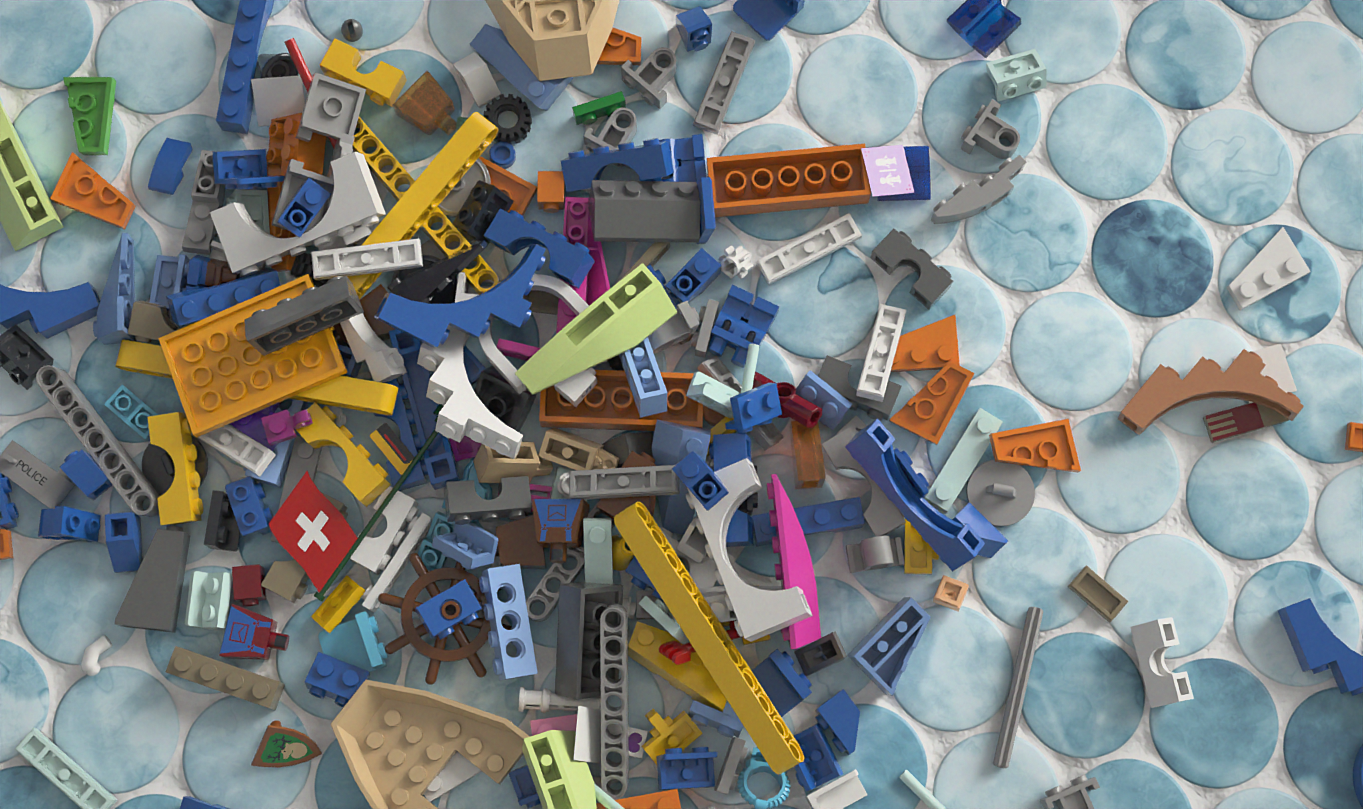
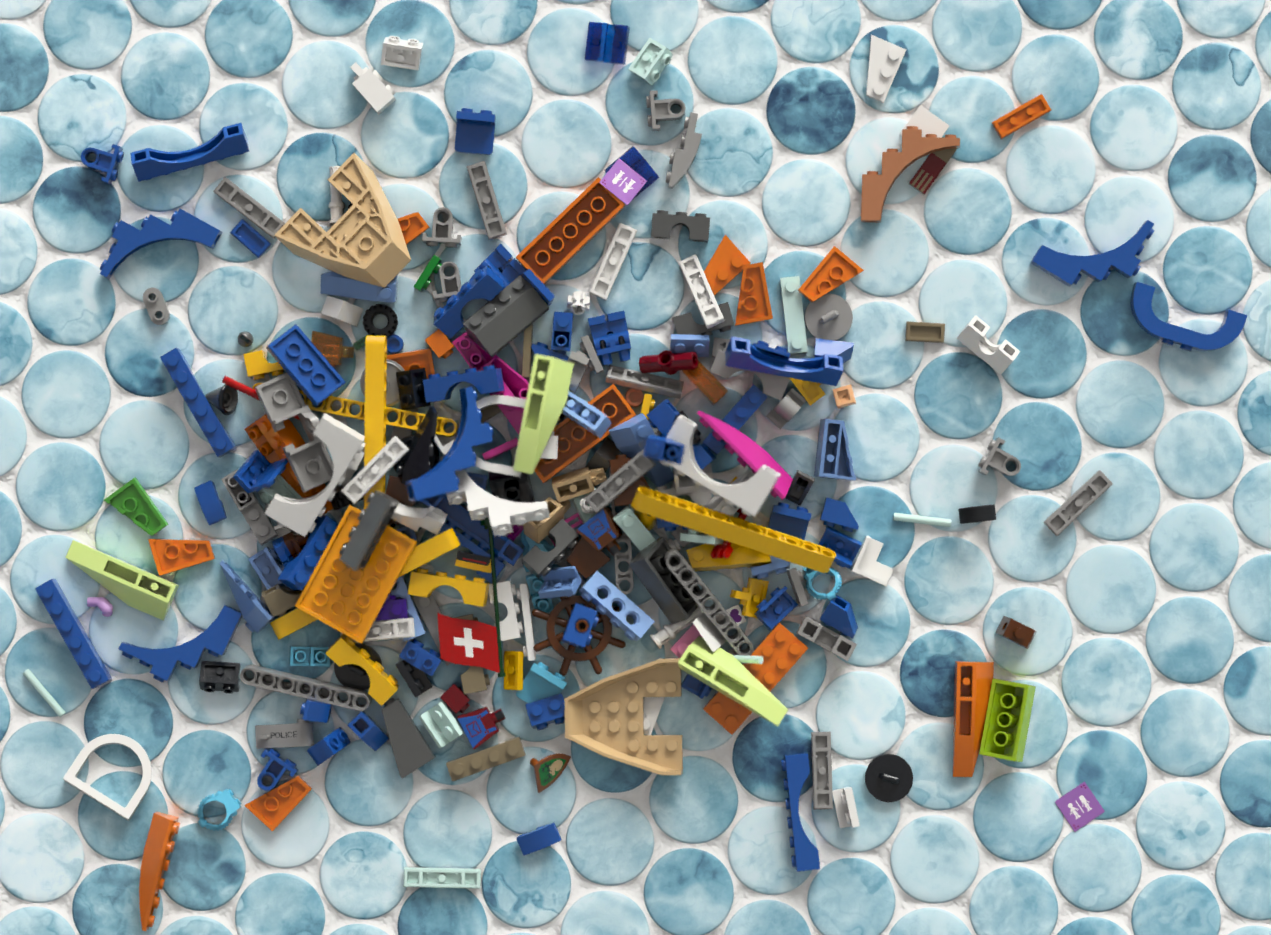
camera: 40 degrees left, 10 degrees up
(91, 655) = (401, 805): white arm -> none
(277, 98) = (240, 415): white sticker -> none
(282, 426) = (404, 599): magenta plate -> none
(303, 207) = (316, 470): blue slope -> none
(388, 96) = (305, 365): none -> blue piece
(694, 29) = (444, 182): blue slope -> none
(711, 394) = (631, 391): light aqua bracket -> none
(750, 367) = (641, 369): light aqua bar -> none
(754, 408) = (658, 382): blue bracket -> none
(1018, 687) = (920, 419): light grey axle -> none

